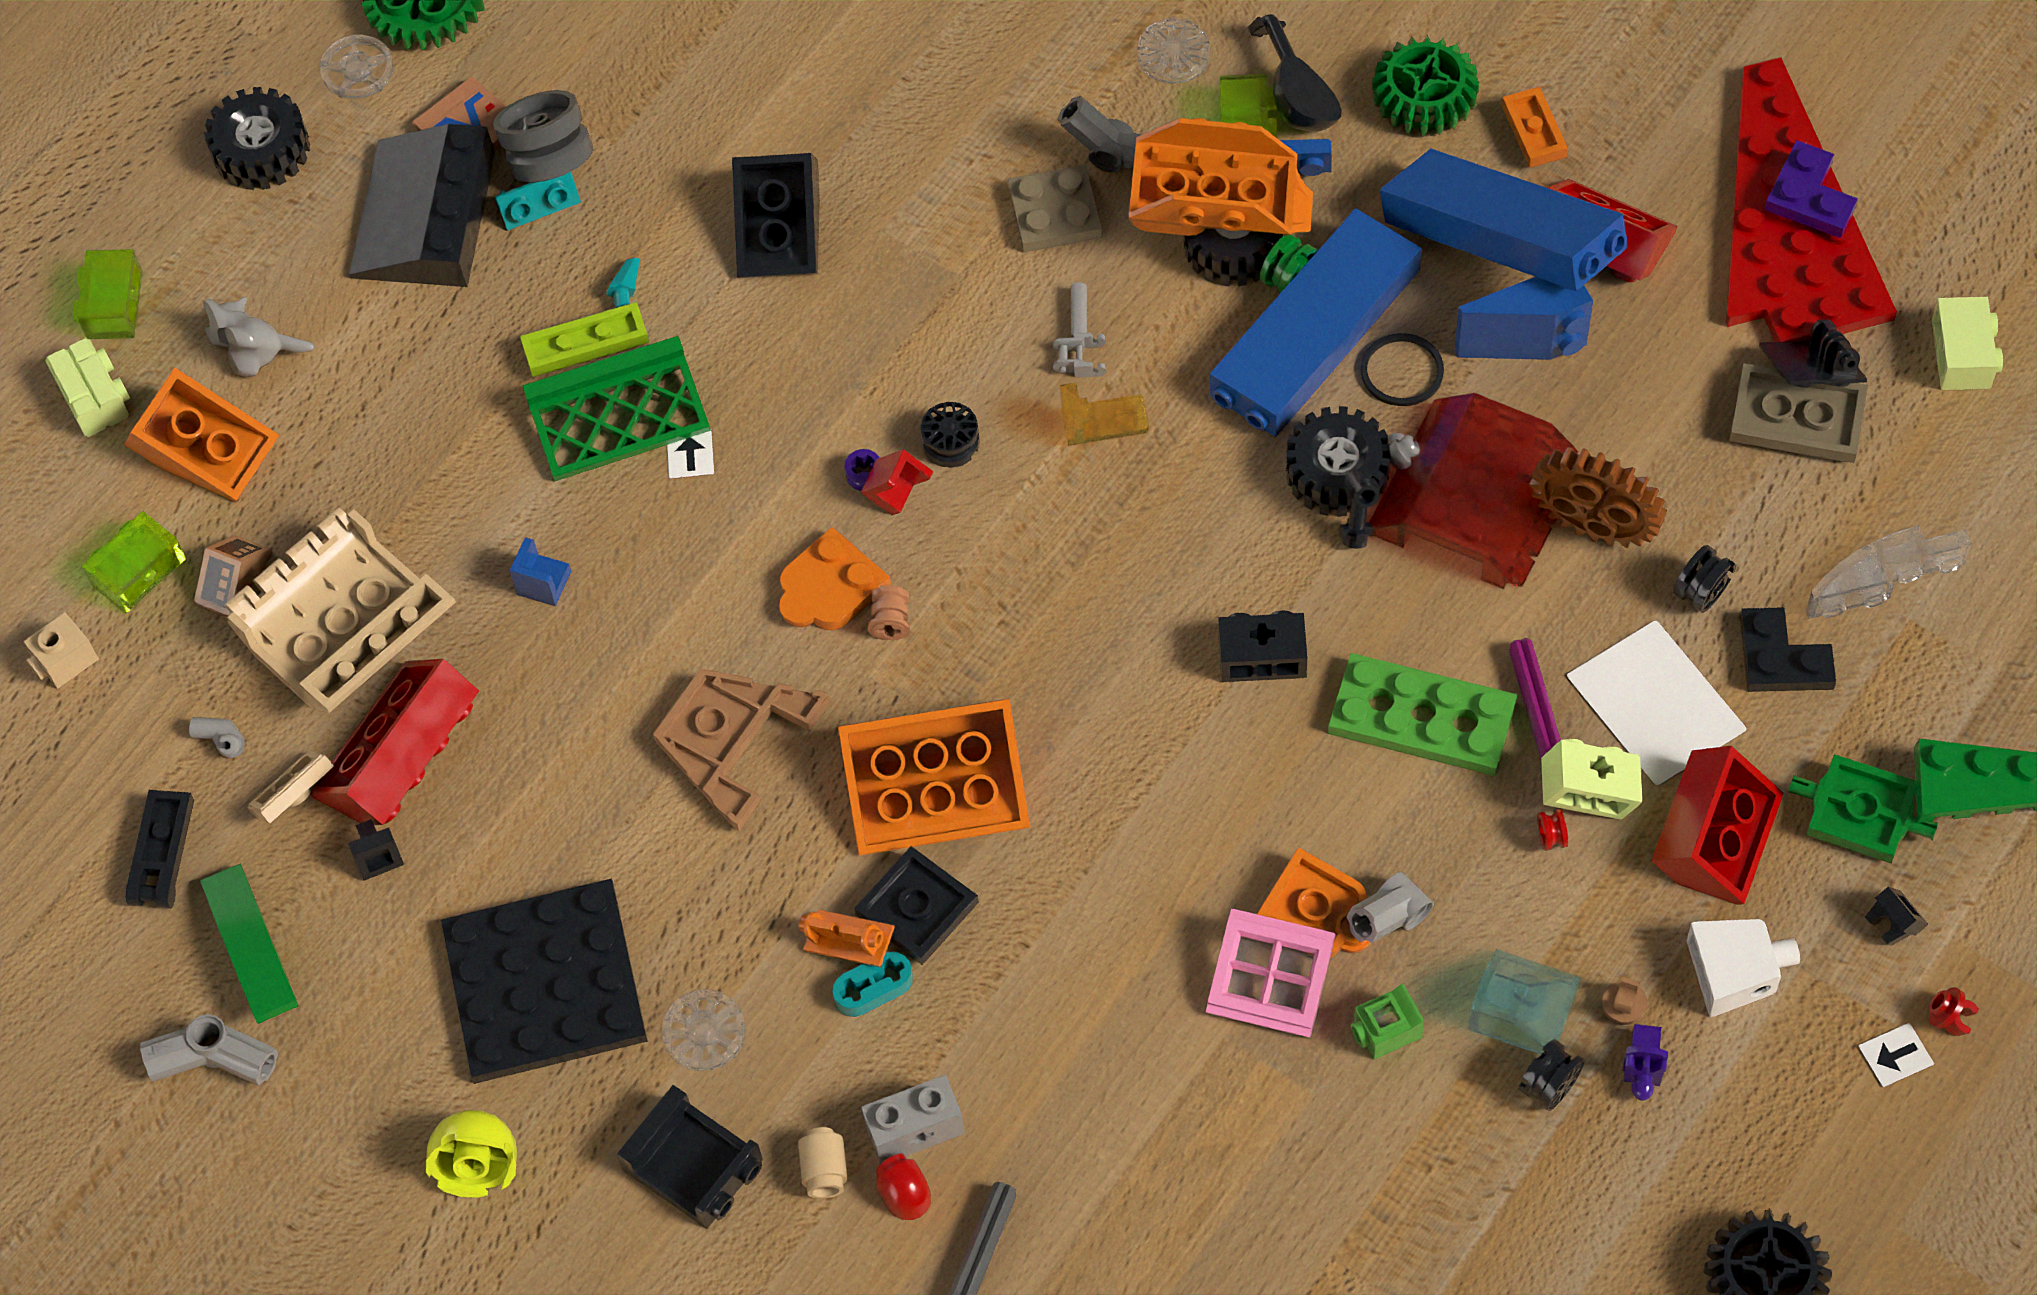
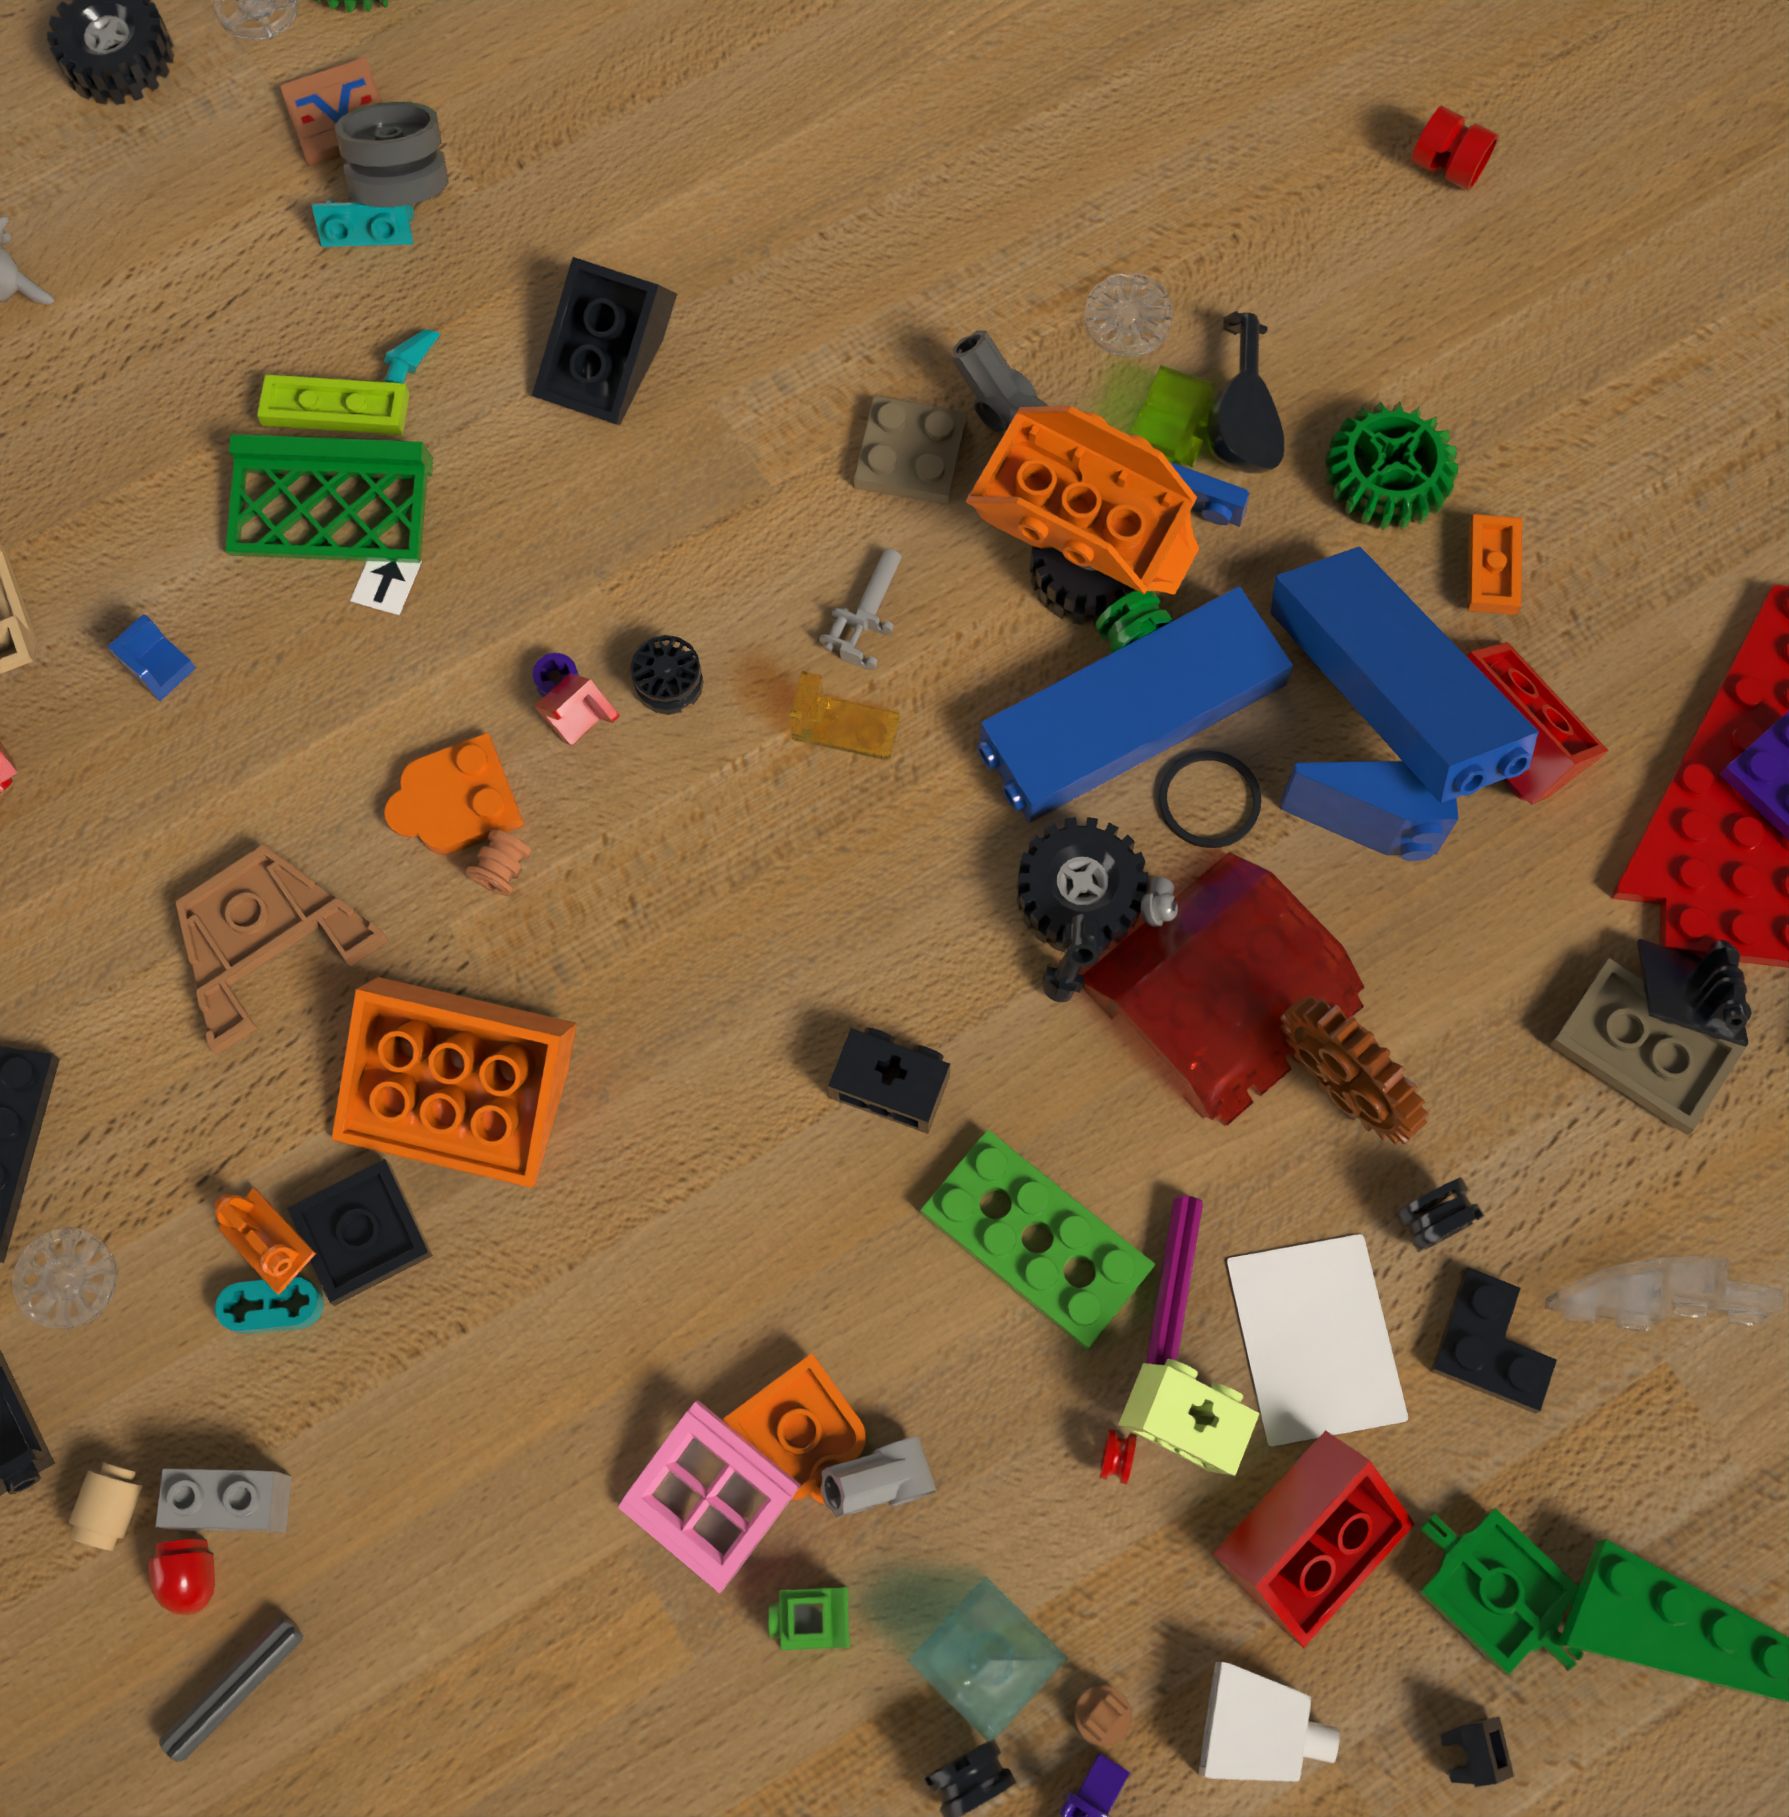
camera: 20 degrees right, 10 degrees up
(424, 206) = (244, 189): black slope -> none

